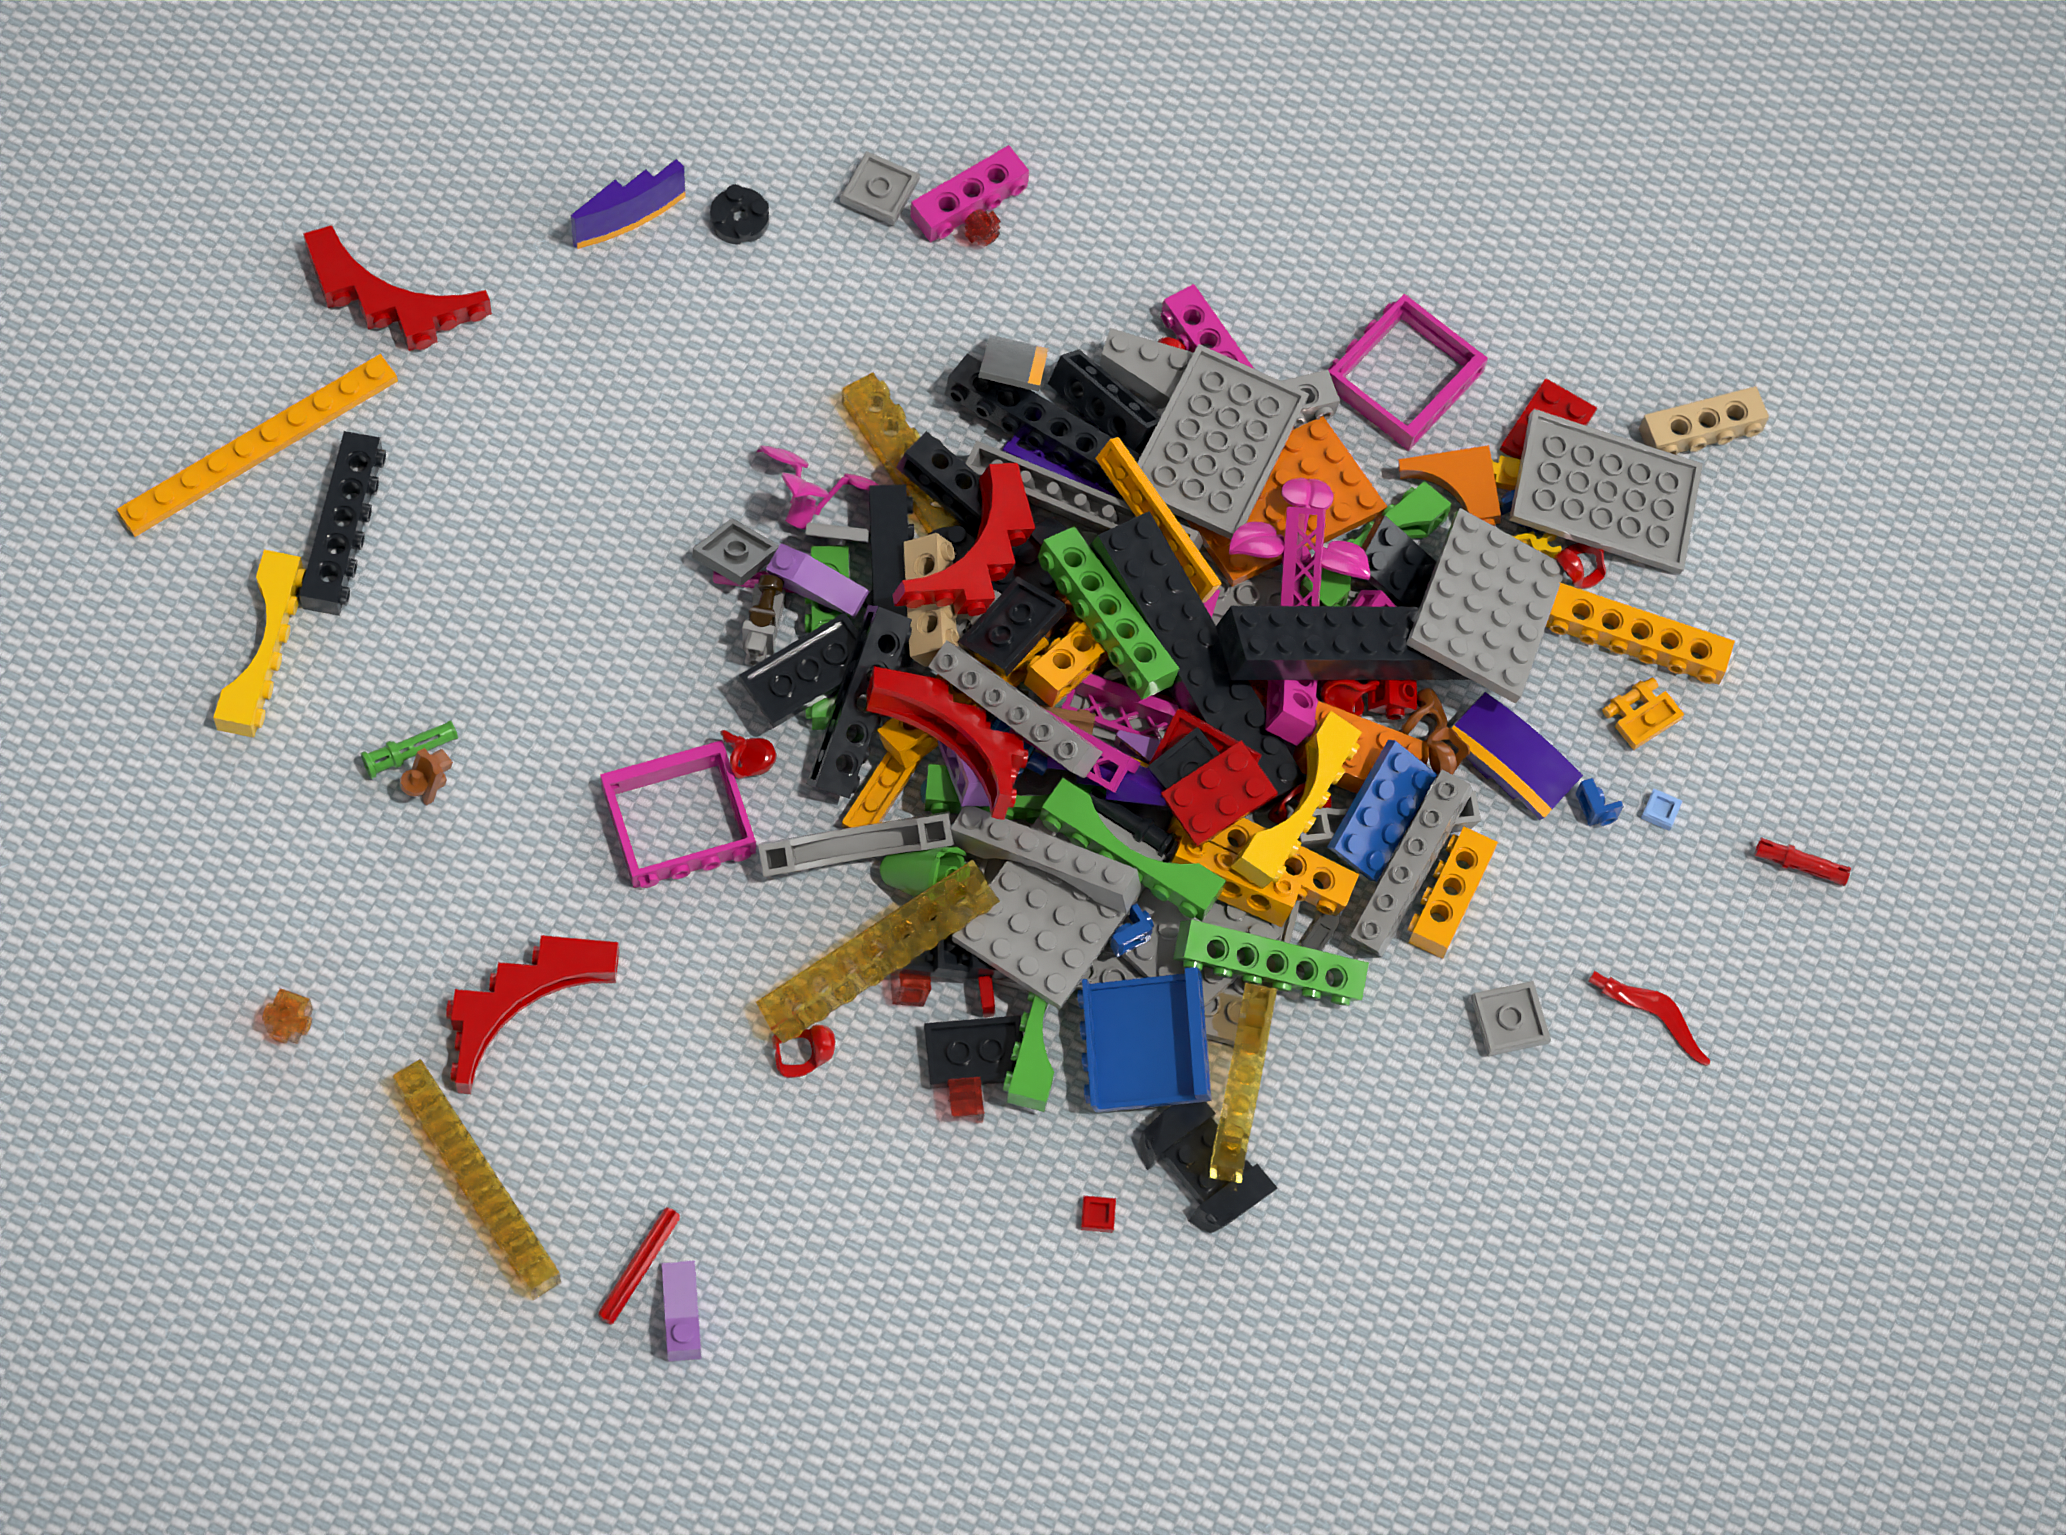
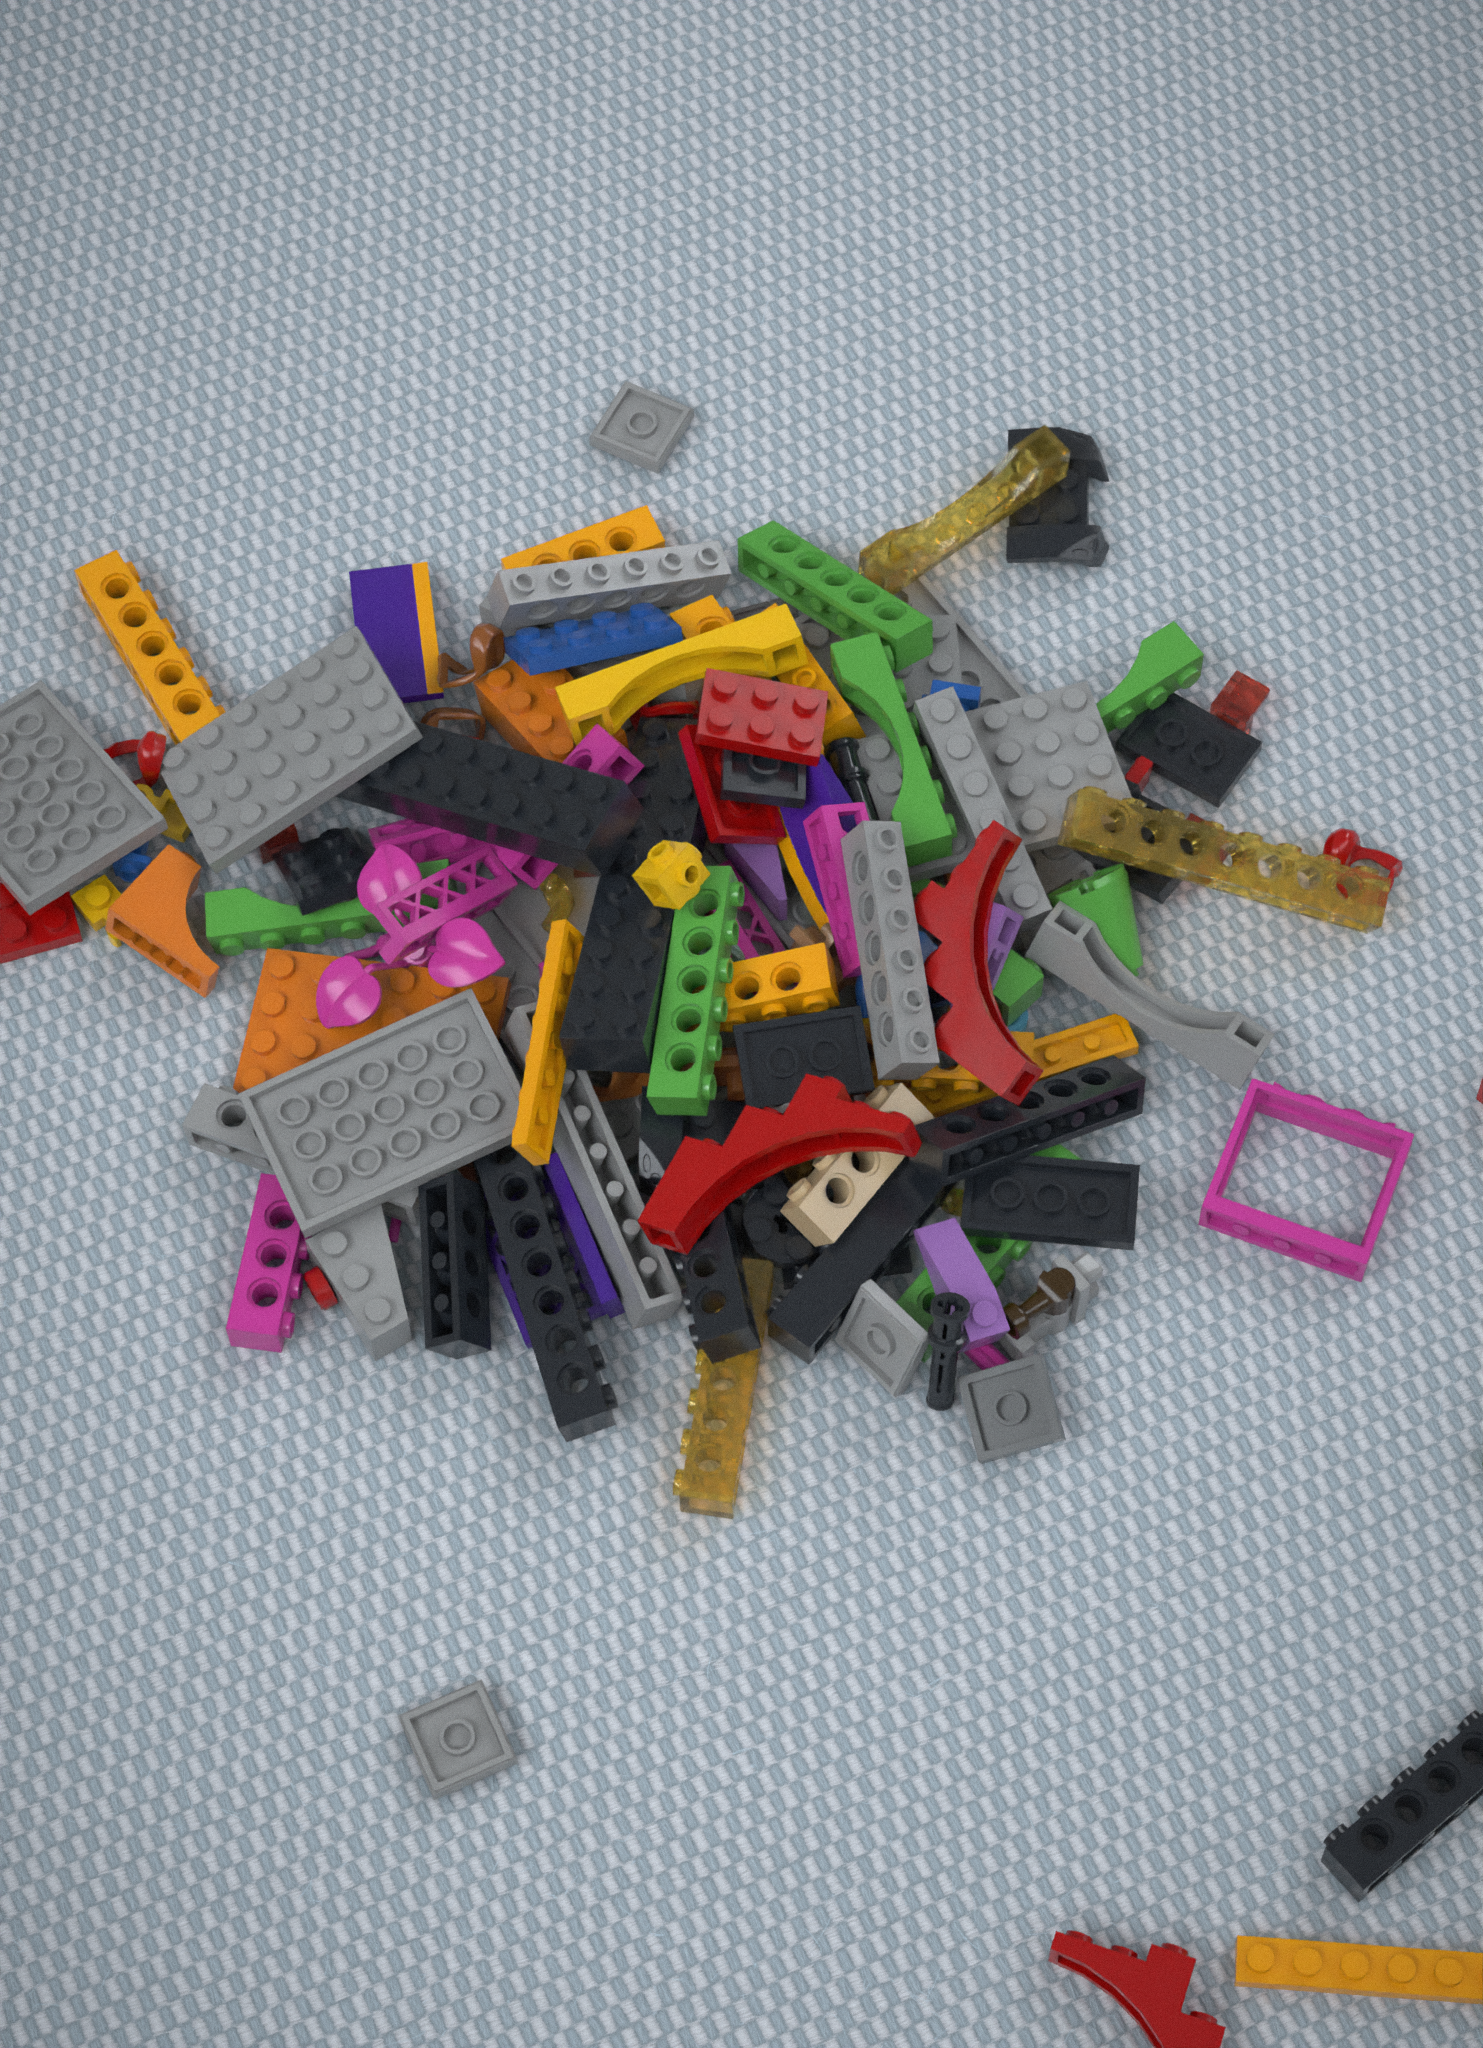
camera: 130 degrees left, 5 degrees down
(626, 208) = (808, 1932): dark purple slope -> none
(739, 199) = (639, 1861): black plate -> none
(755, 755) = (1172, 1183): red piece -> none
(797, 534) = (946, 1338): none -> black pin
(803, 505) = (894, 1368): dark pink plant -> none
(976, 180) = (381, 1662): dark pink brick -> none
(982, 227) = (389, 1590): clear red gear -> none
(1013, 363) = (522, 1366): dark grey slope -> none
(1098, 1214) = (1192, 538): red tile -> none
(1145, 1042) = (1020, 615): blue panel -> none
(1172, 640) = (671, 874): none -> yellow brick
(1436, 332) = (89, 1019): dark pink window -> none
(1592, 803) = (365, 538): blue bracket -> none
(1646, 721) = (228, 578): light orange plate -> none
(1657, 1004) = (492, 357): red piece -> none
(1661, 809) = (304, 501): light blue tile -> none
(1802, 861) = (235, 376): red pin -> none

